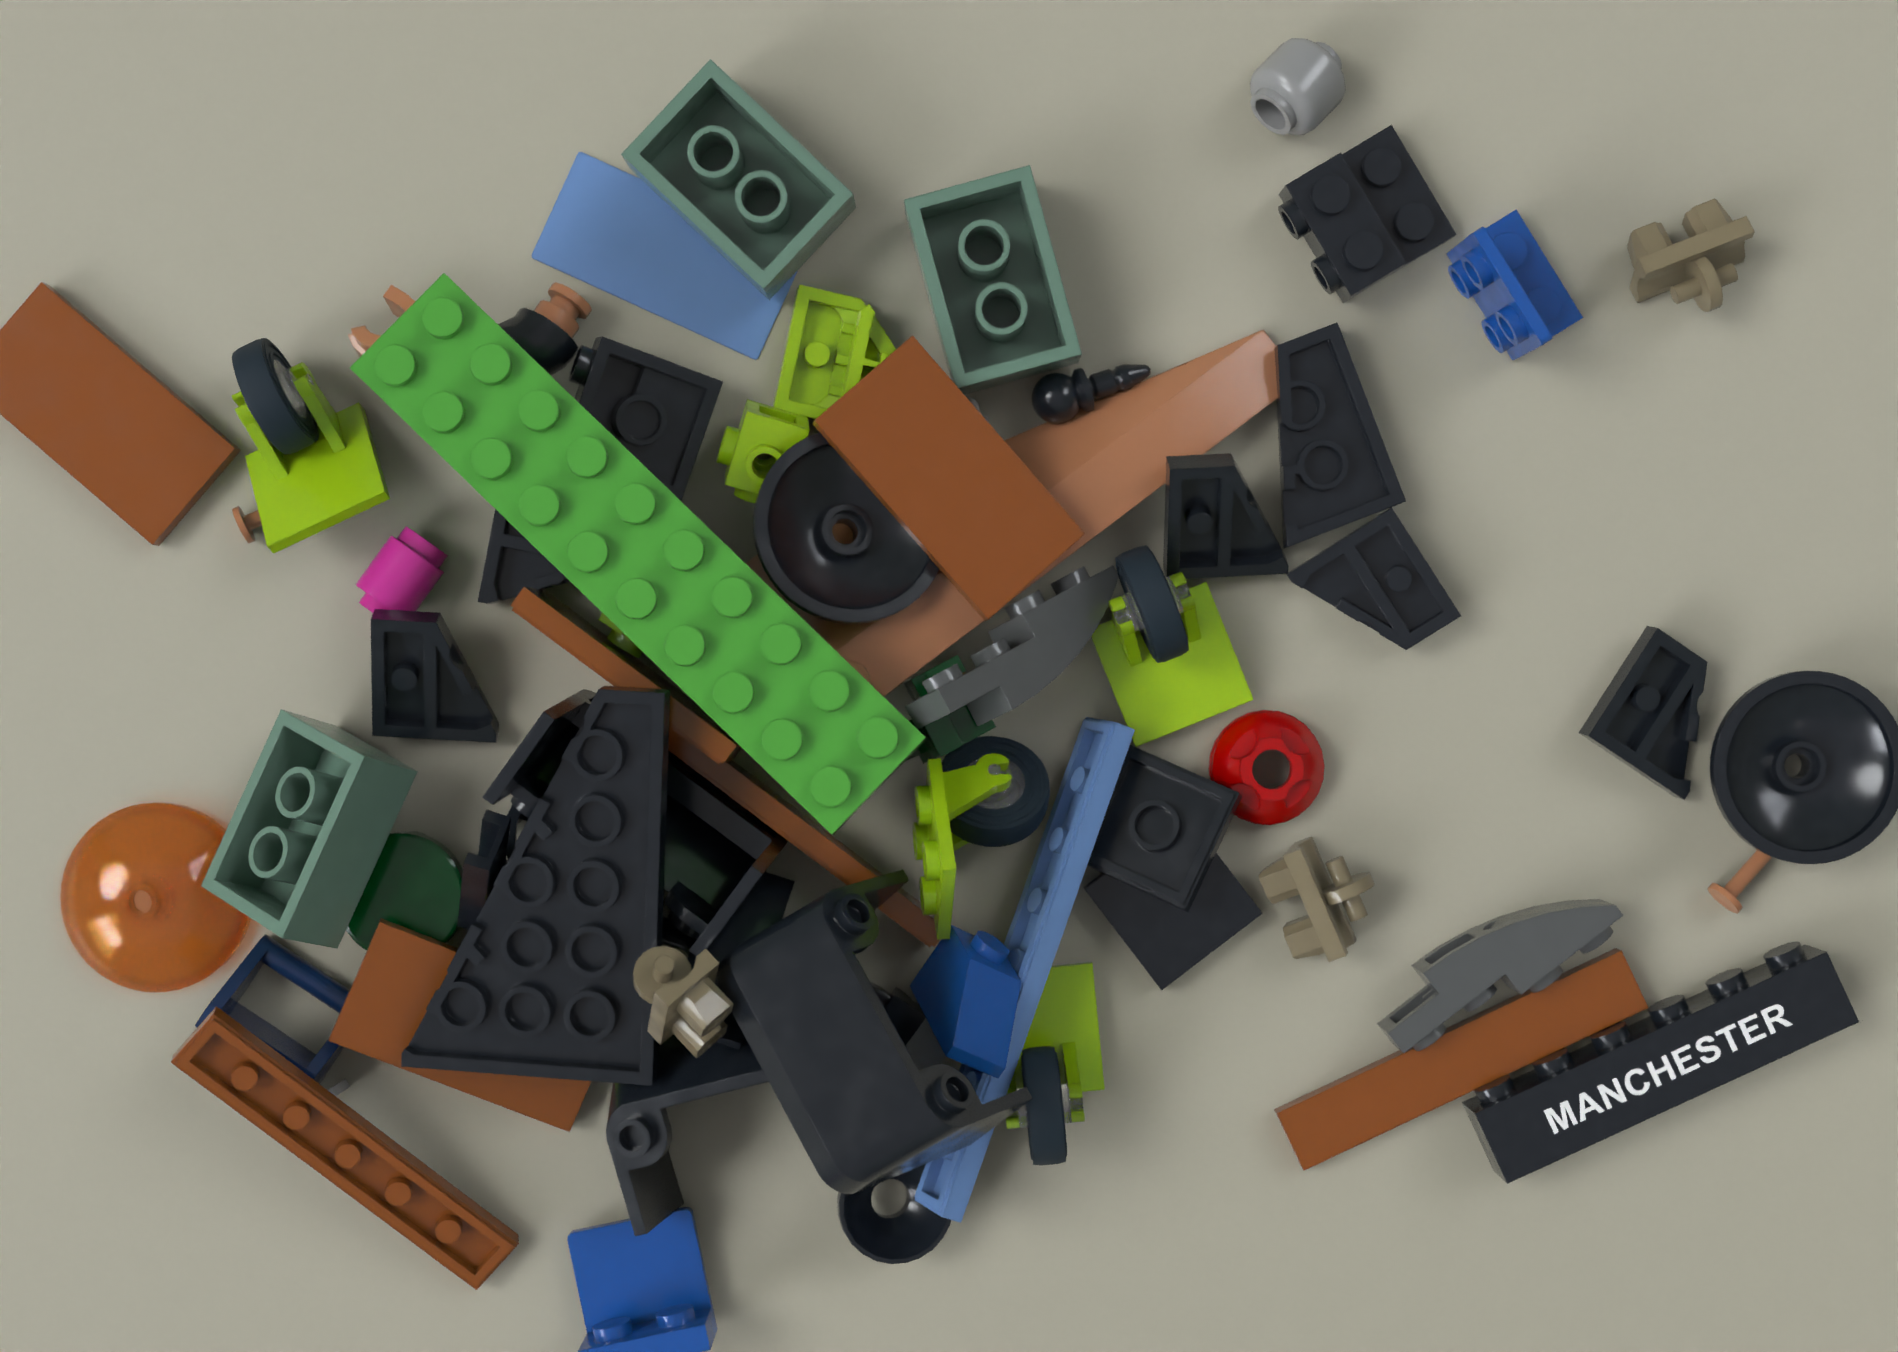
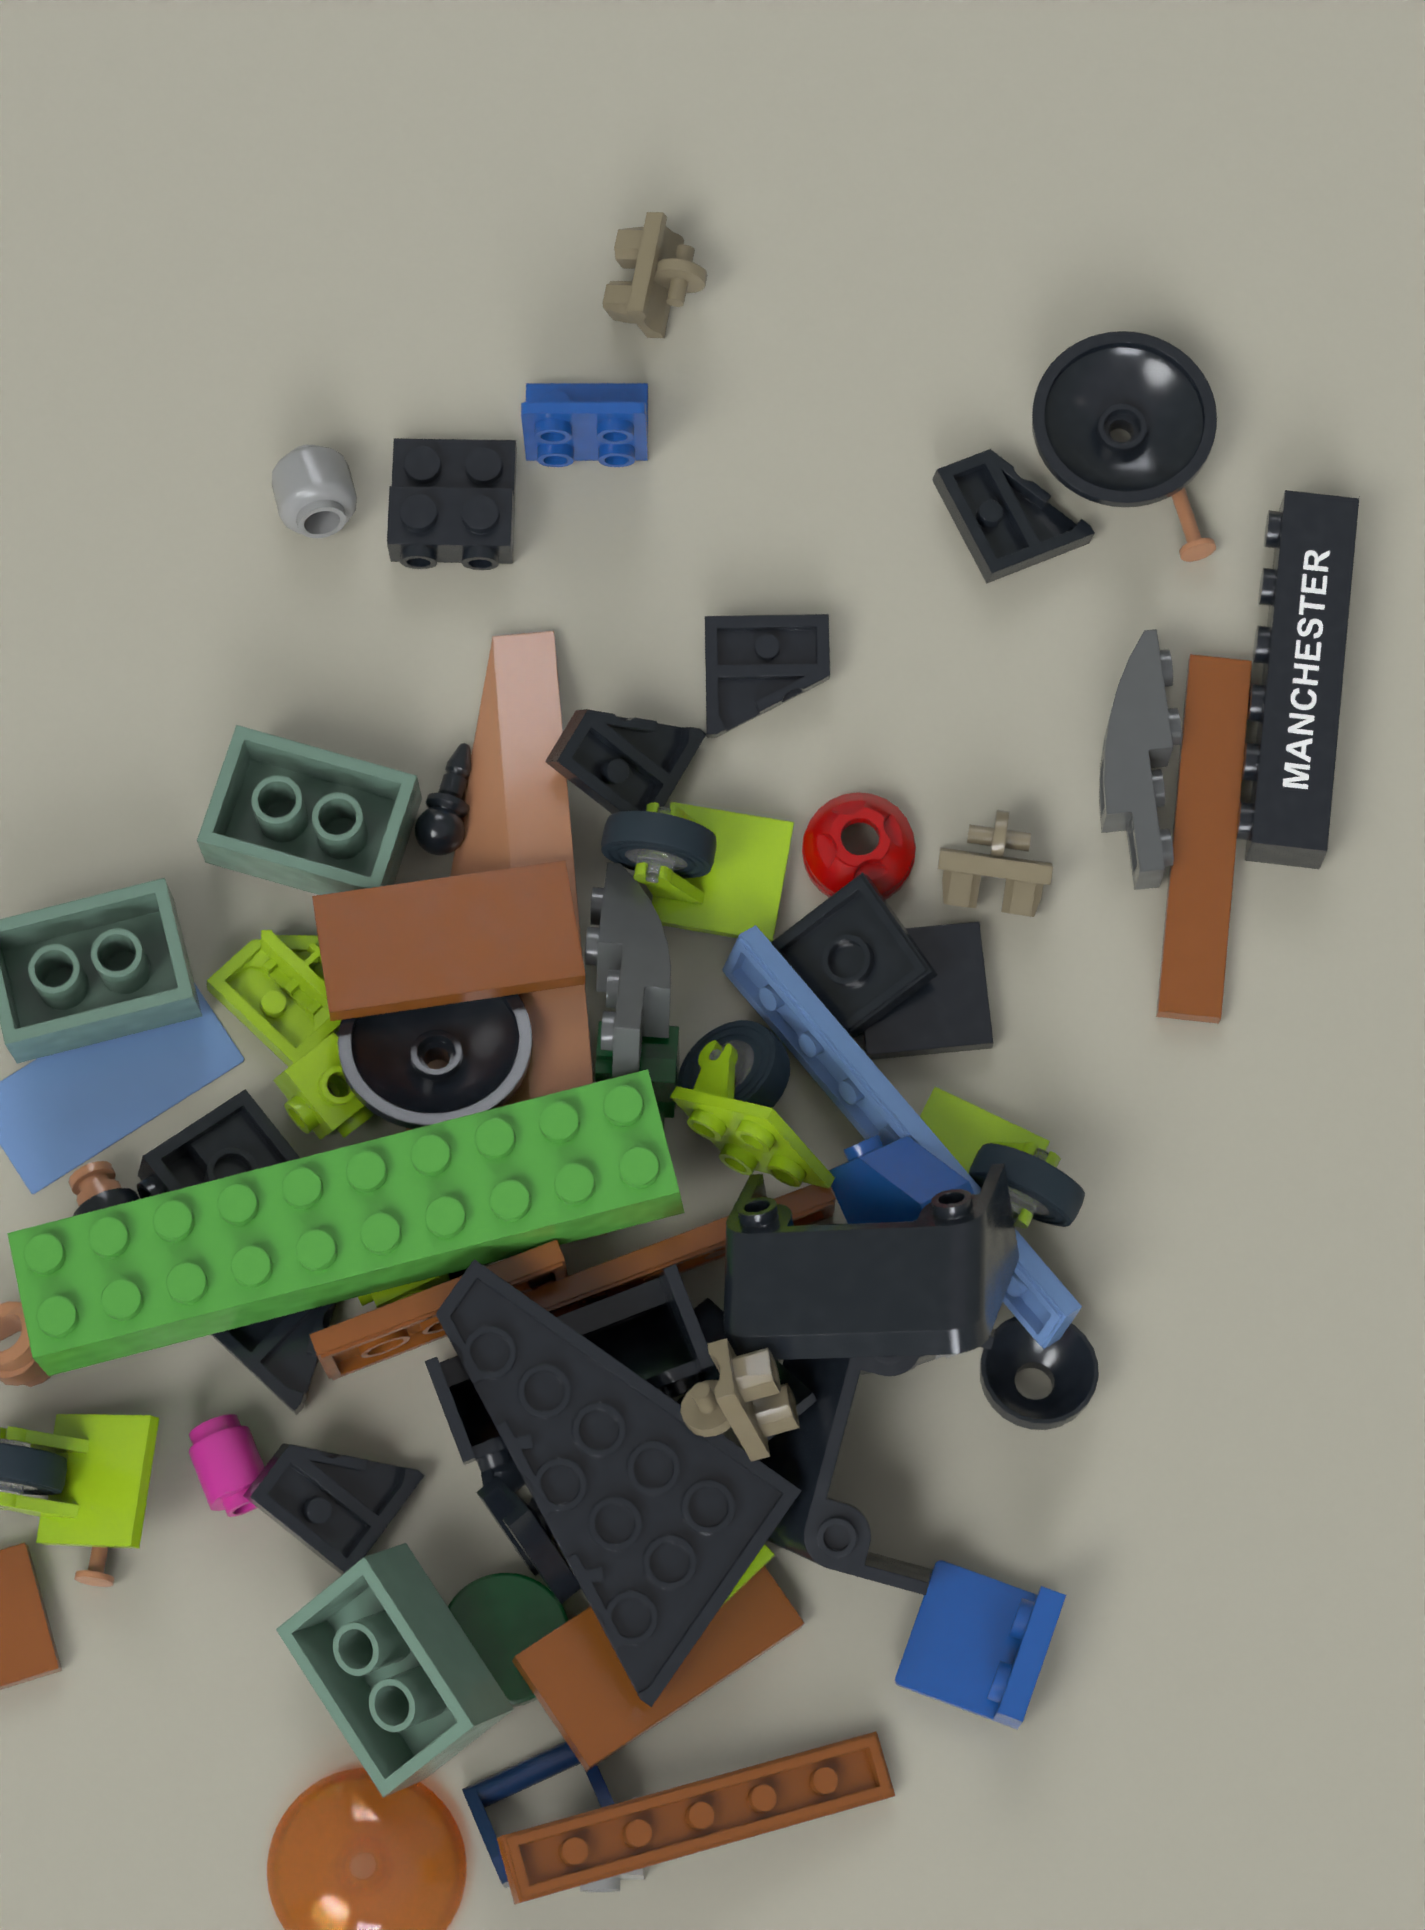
camera: 60 degrees left, 15 degrees down
(1328, 440) = (617, 636): black wing -> none

